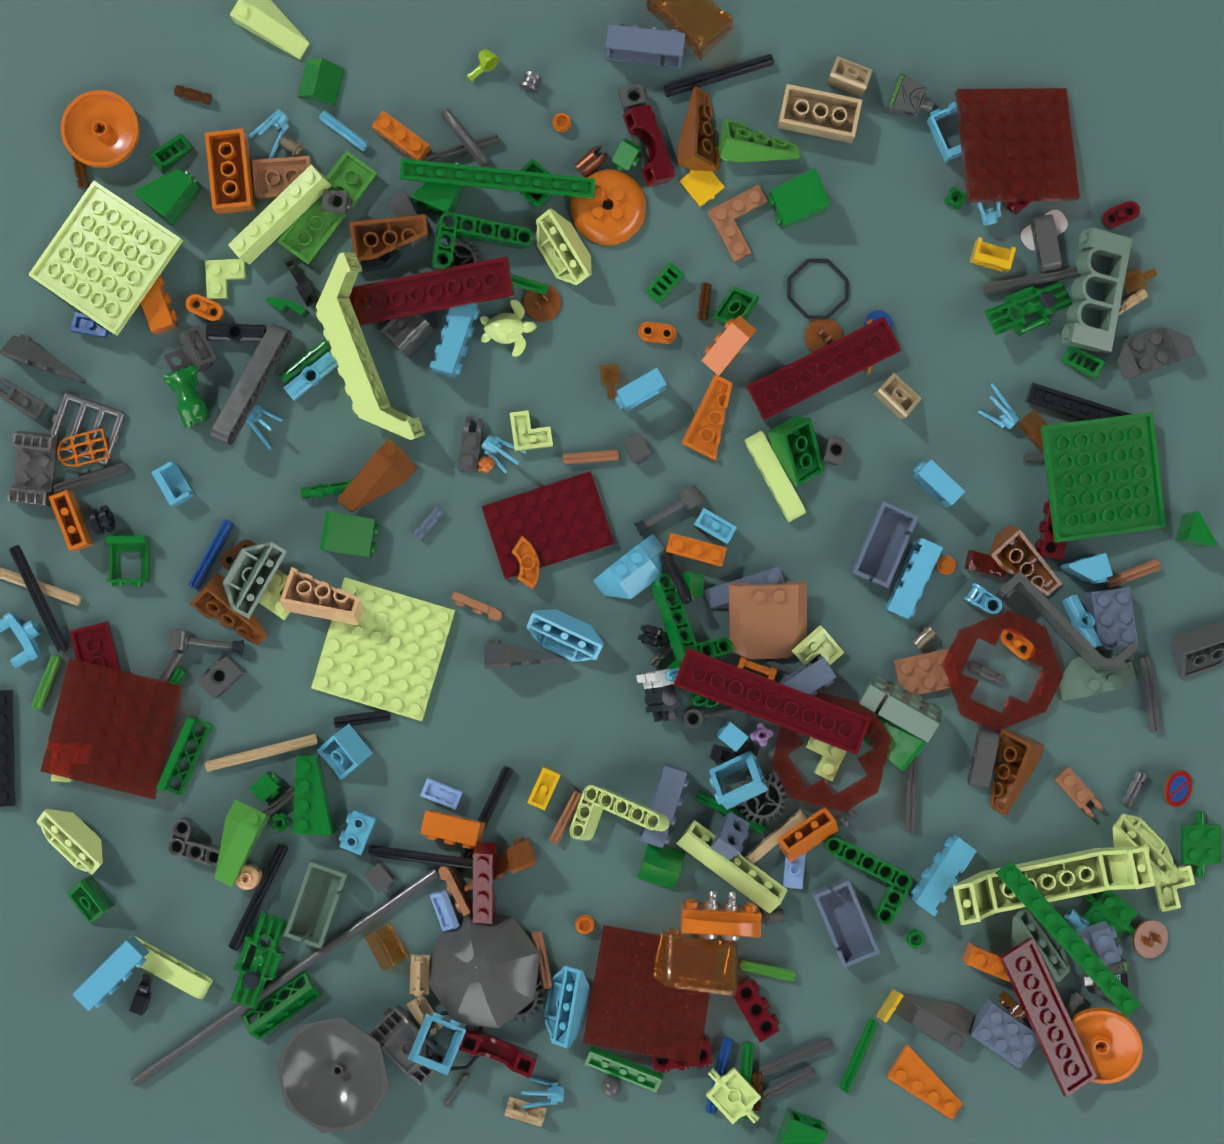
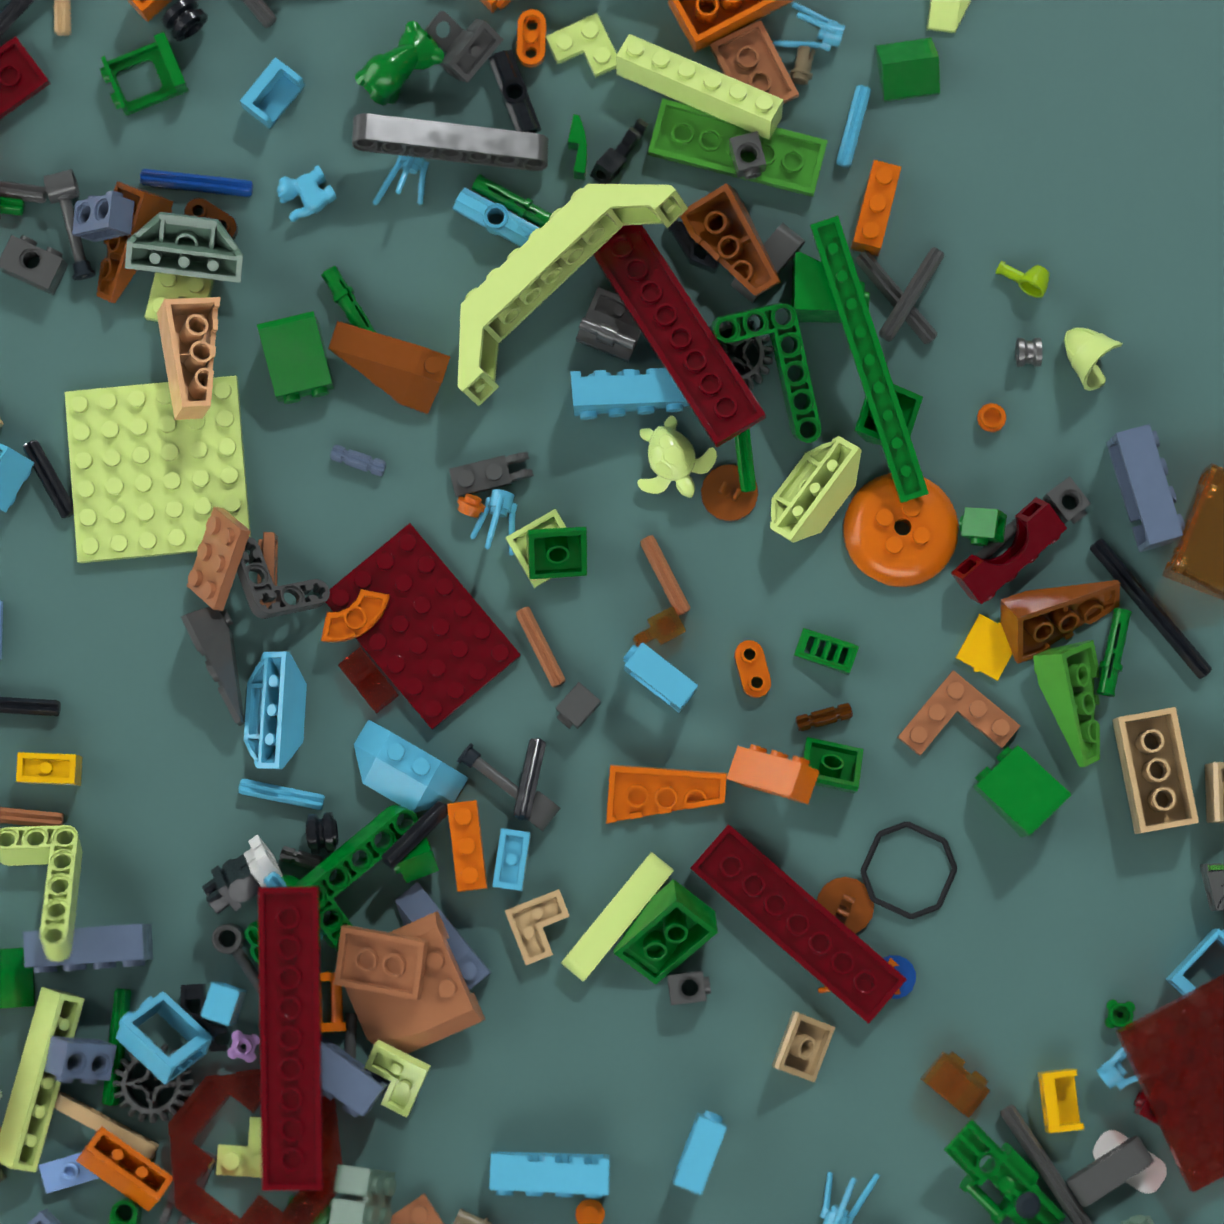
camera: 70 degrees right, 5 degrees down
(210, 620) = (103, 217): none -> sand blue brick
(243, 486) = (306, 186): none -> medium azure animal
(456, 631) = (218, 558): none -> nougat plate
(488, 610) = (268, 592): none -> dark grey beam
(538, 422) = (557, 552): none -> green slope
(545, 46) = (1084, 350): none -> yellowish green helmet
(568, 570) = (368, 680): none -> clear red slope
(579, 362) = (665, 575): none -> nougat axle
(590, 161) = (951, 479): copper piece -> none
(617, 651) = (281, 794): none -> medium azure axle
(670, 495) = (529, 779): none -> black axle
(747, 629) = (381, 962): none -> nougat plate
(755, 121) = (1107, 685): none -> green pin
(755, 531) = (528, 923): none -> tan plate
(884, 544) = (581, 1111): sand blue piece -> none
(957, 313) = (955, 1083): none -> clear orange brick

